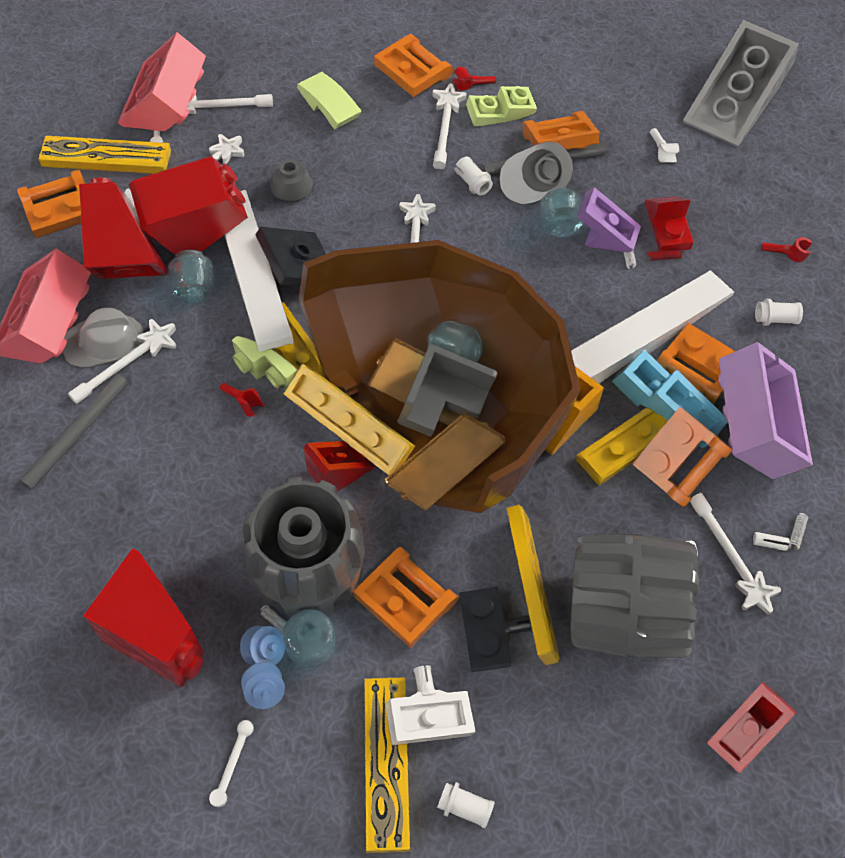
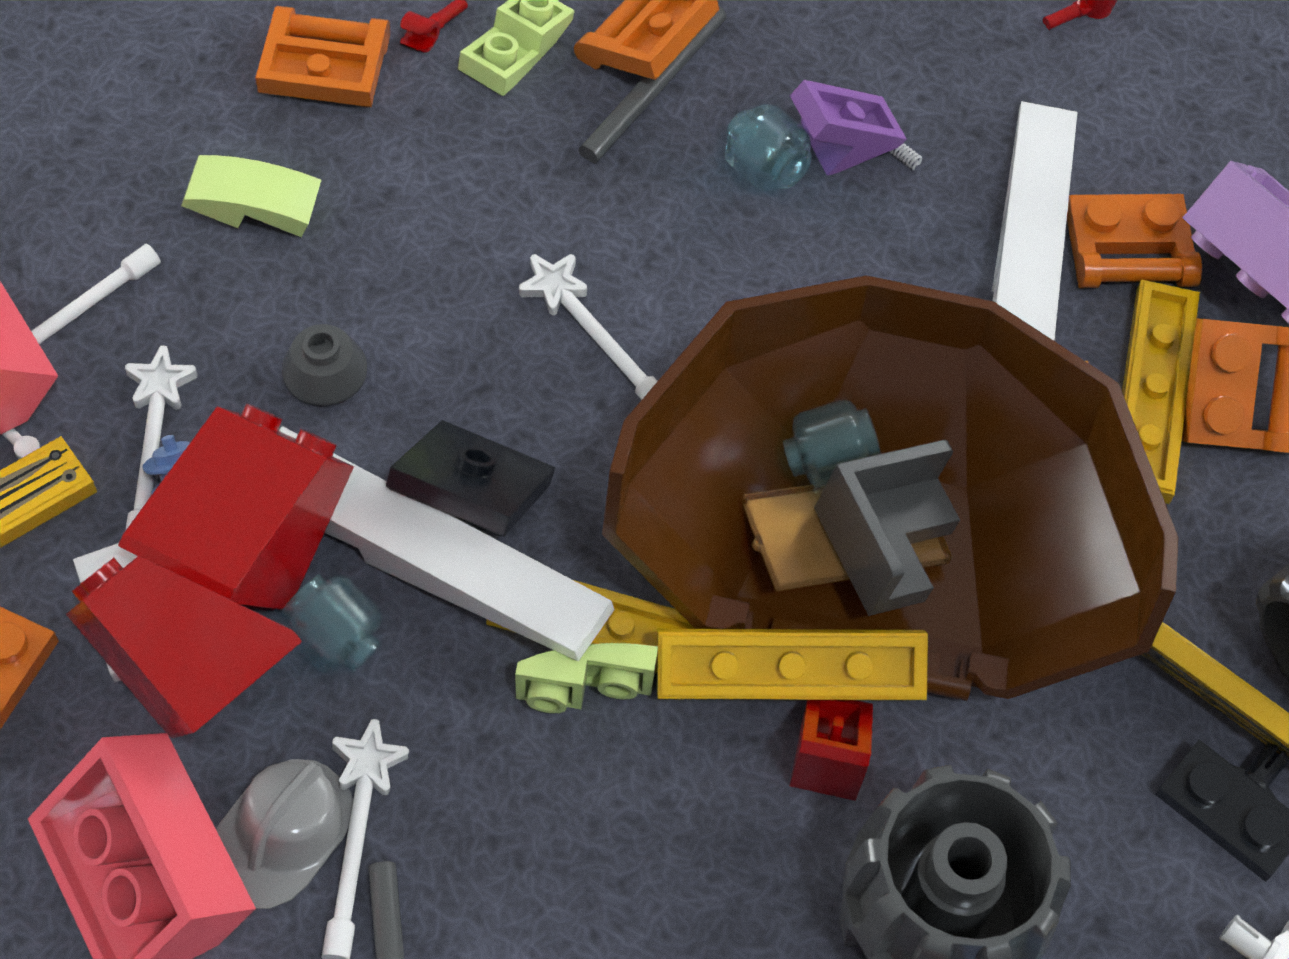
camera: 45 degrees left, 0 degrees up
(246, 398) = (603, 747): red hand -> none
(397, 605) = (1116, 871): orange plate -> none
(445, 461) = (986, 621): clear orange piece -> none
(448, 100) = (430, 78): white piece -> none
(478, 181) = (587, 174): white pin -> none
(536, 172) = (682, 110): light grey piece -> none
(652, 386) = (1149, 314): medium azure slope -> none
(663, 253) = (939, 115): red leg -> none
(670, 222) = (901, 63): red slope -> none
(774, 312) = (1148, 110): white pin -> none

